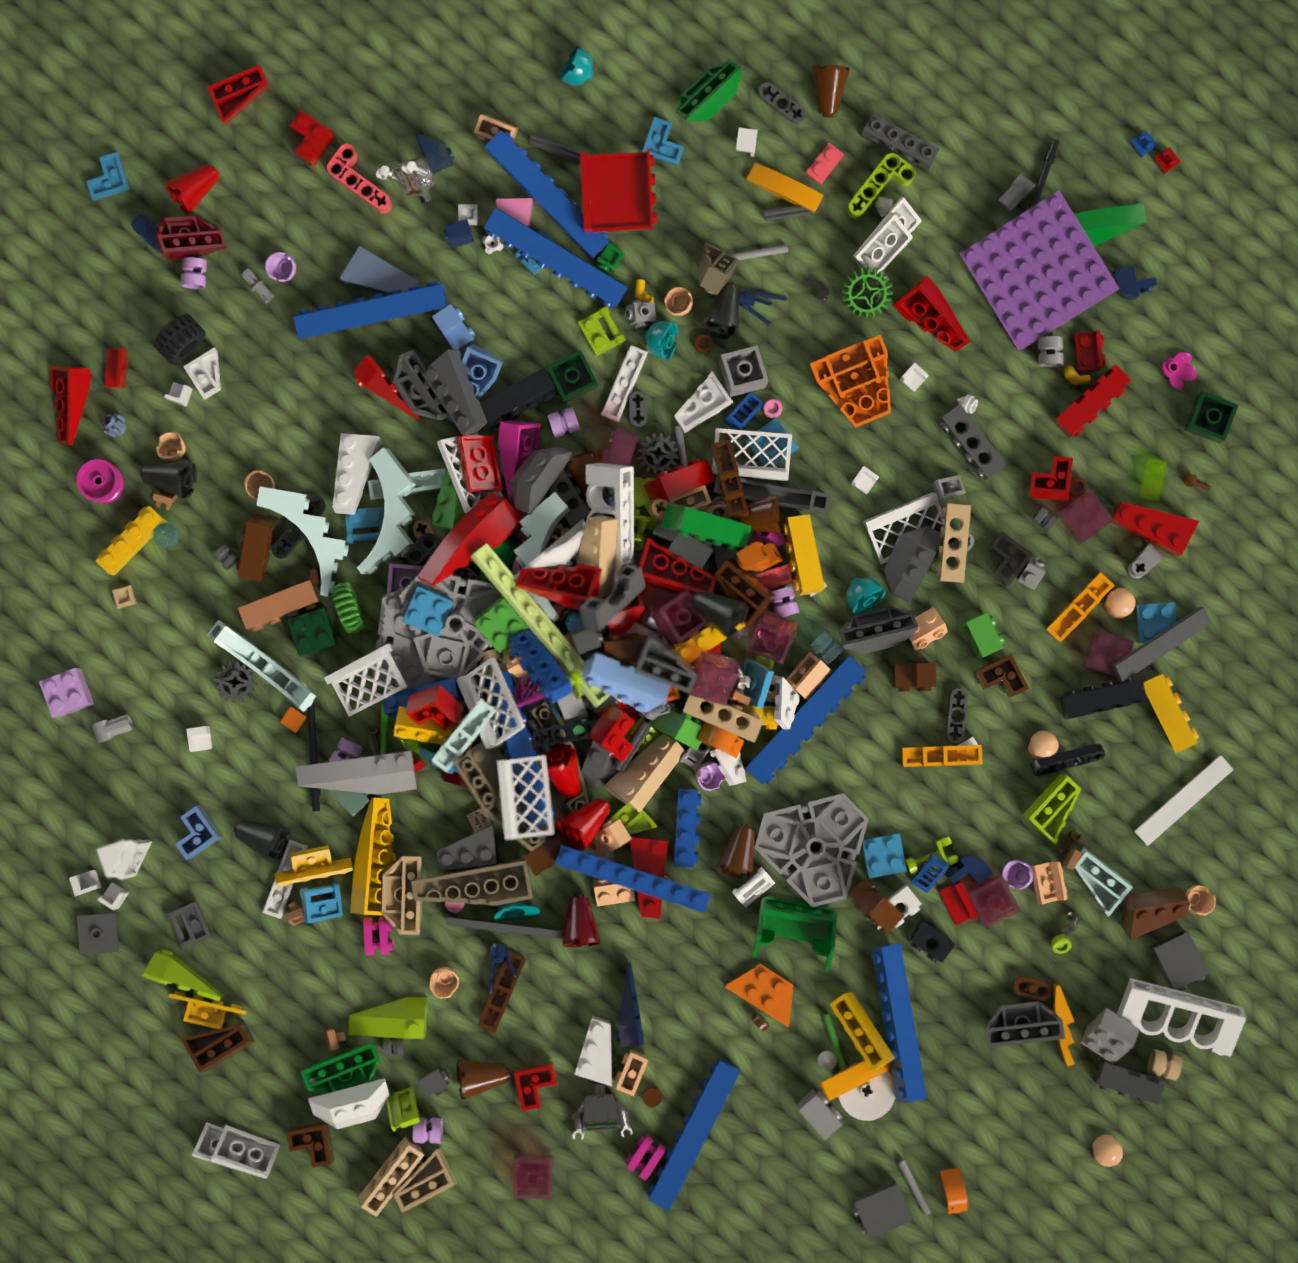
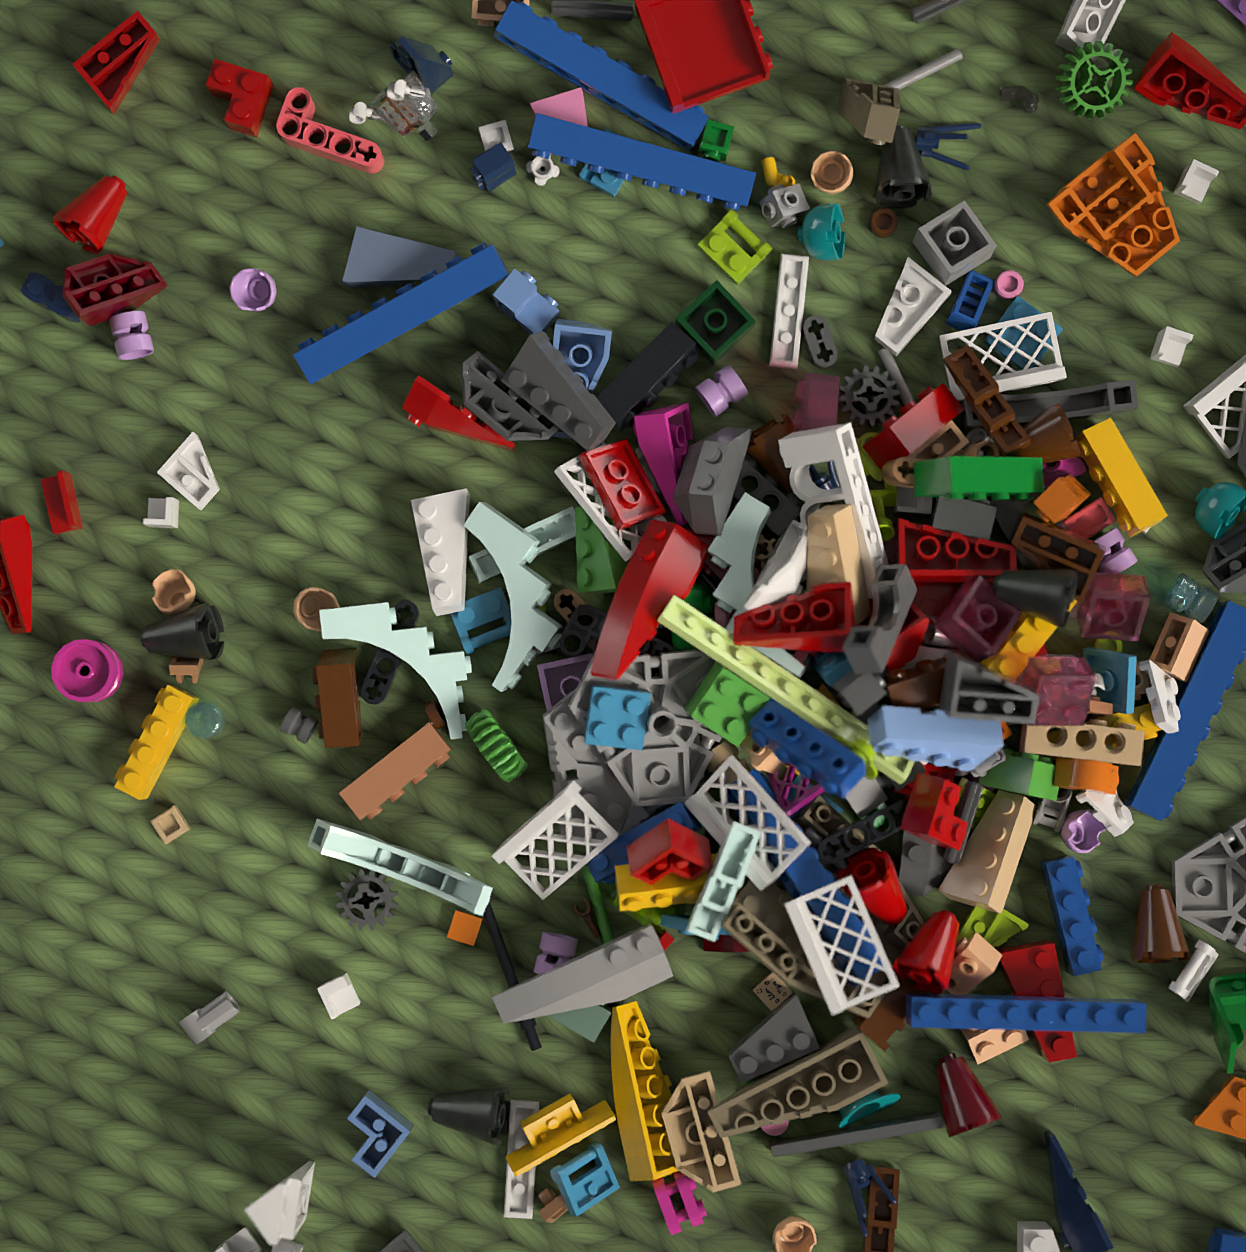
camera: 20 degrees left, 0 degrees up
(66, 692) = (129, 987): lavender brick -> none
(114, 425) = (83, 584): sand blue gear -> none
(179, 338) = (139, 433): black tyre -> none
(257, 285) = (227, 326): light grey axle -> none
(313, 632) = (455, 795): dark green brick -> none

